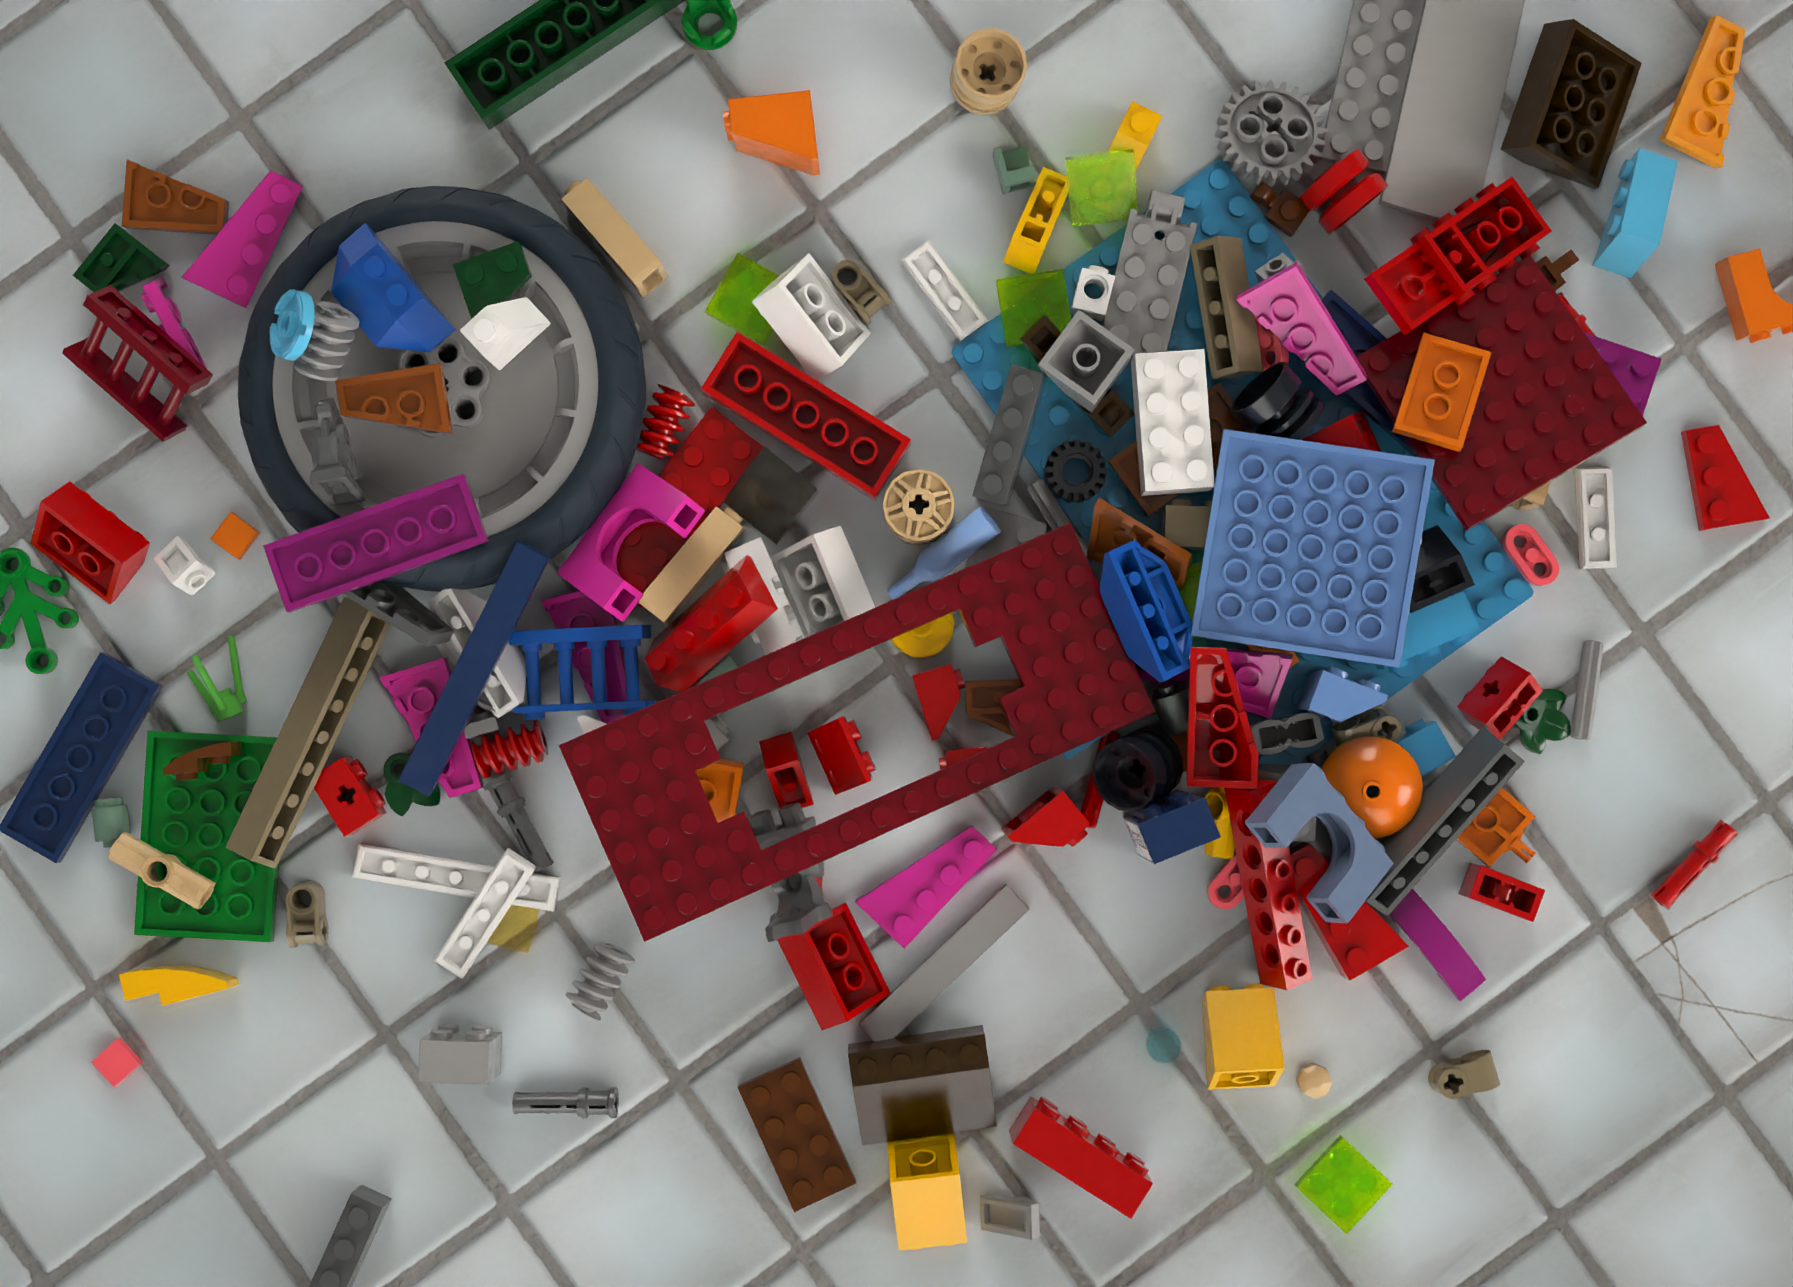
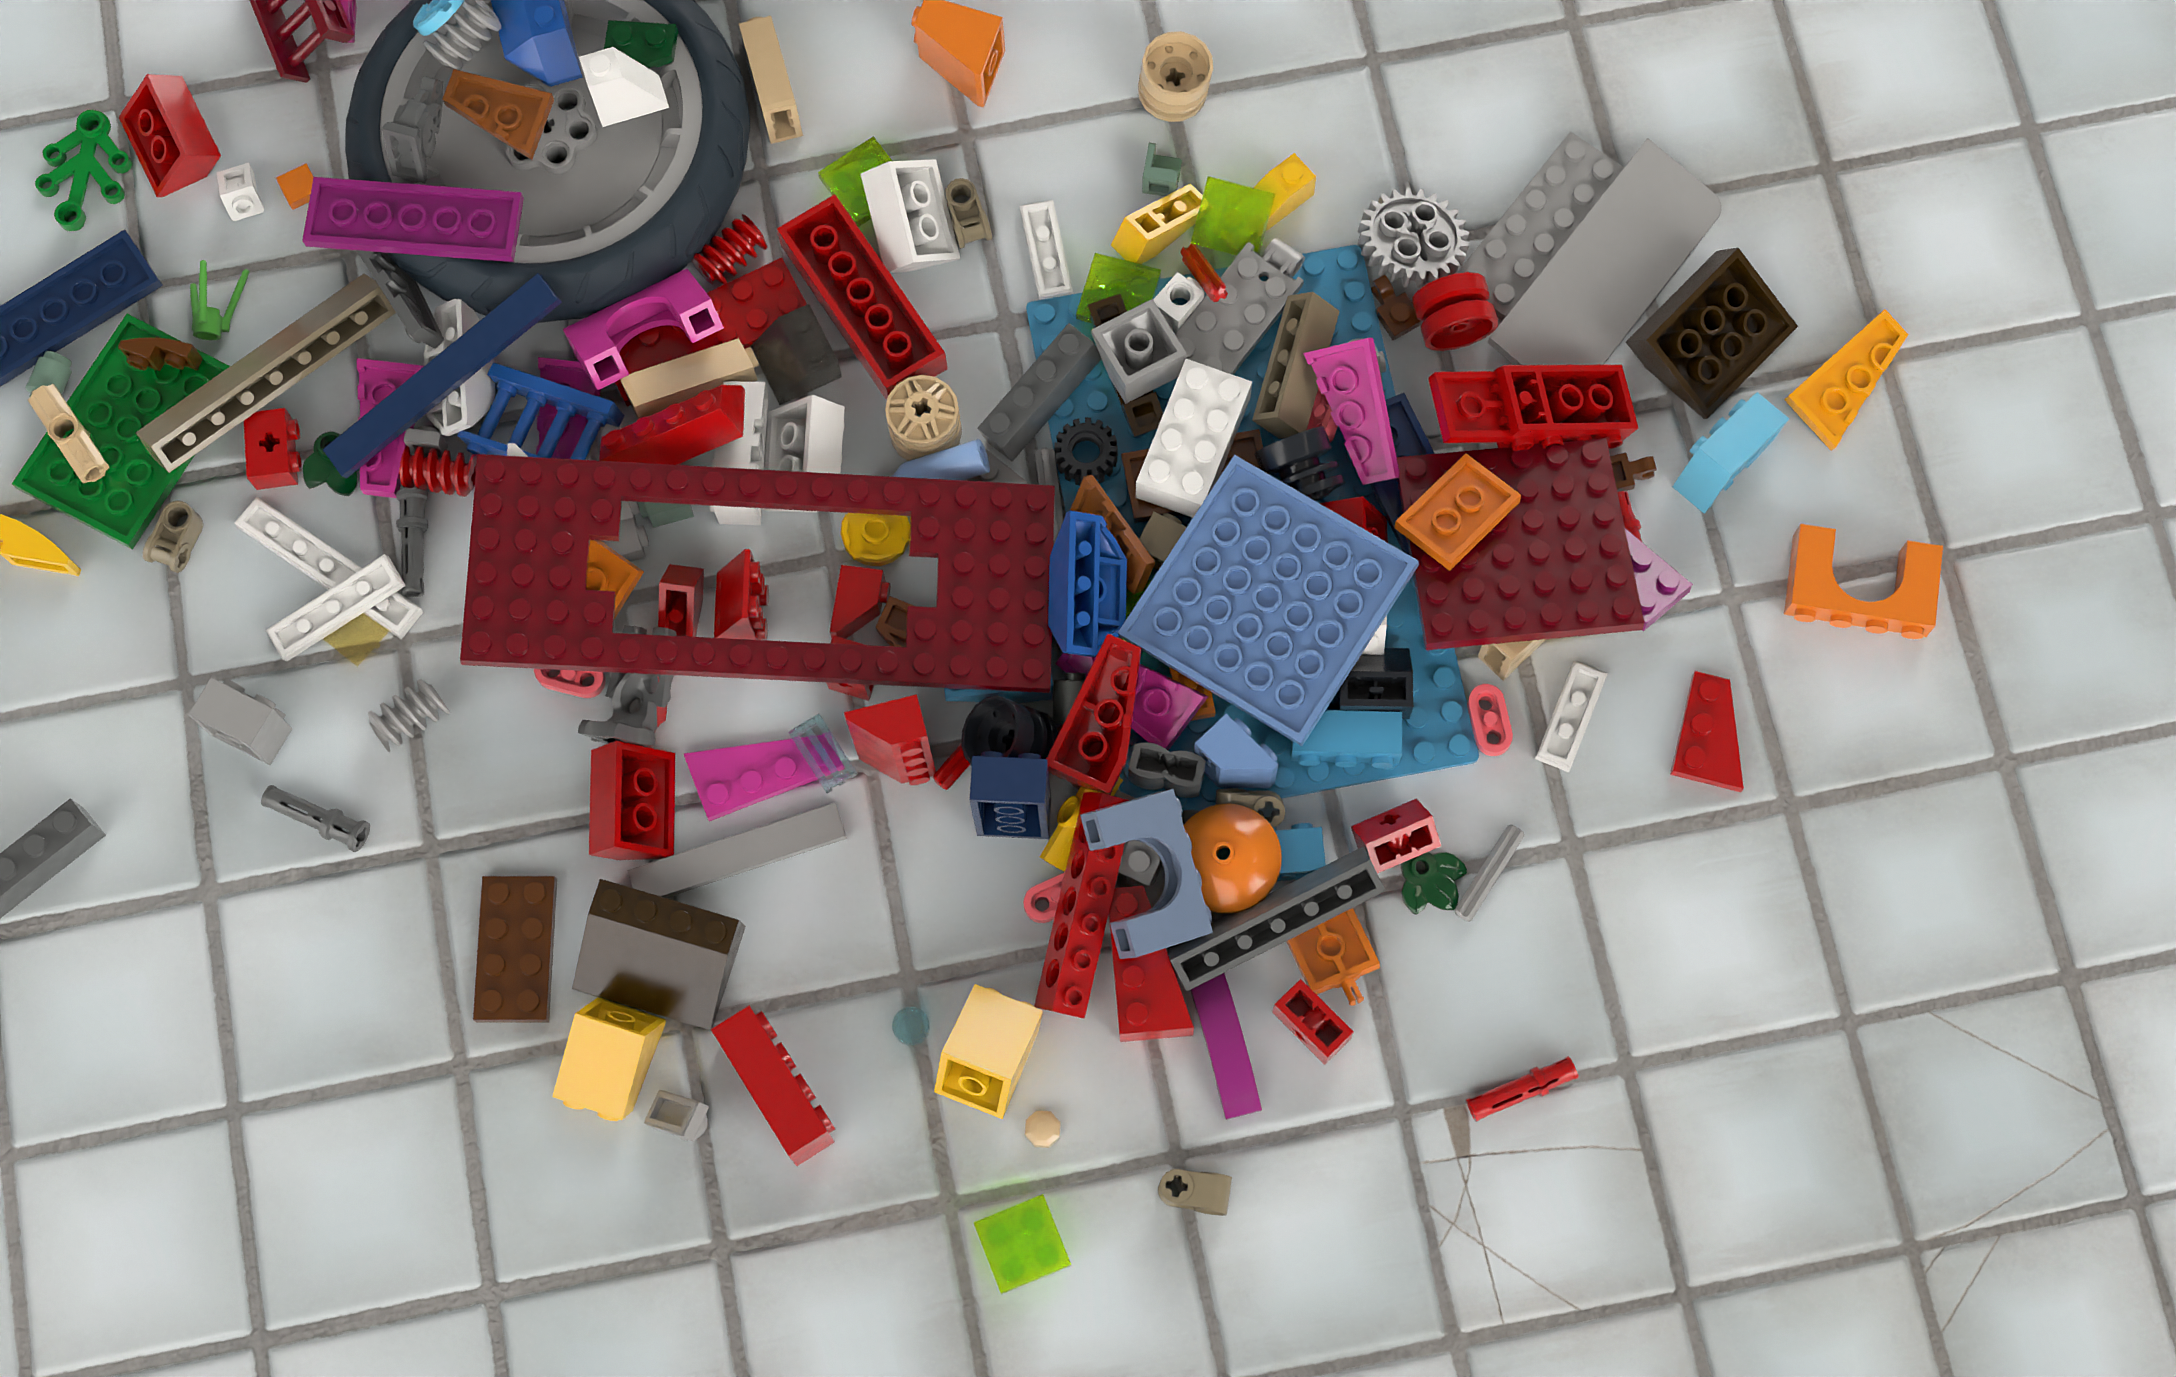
camera: 30 degrees right, 15 degrees down
(953, 834) = (838, 778): none -> clear light blue tile
(1103, 255) = (1203, 273): none -> red axle

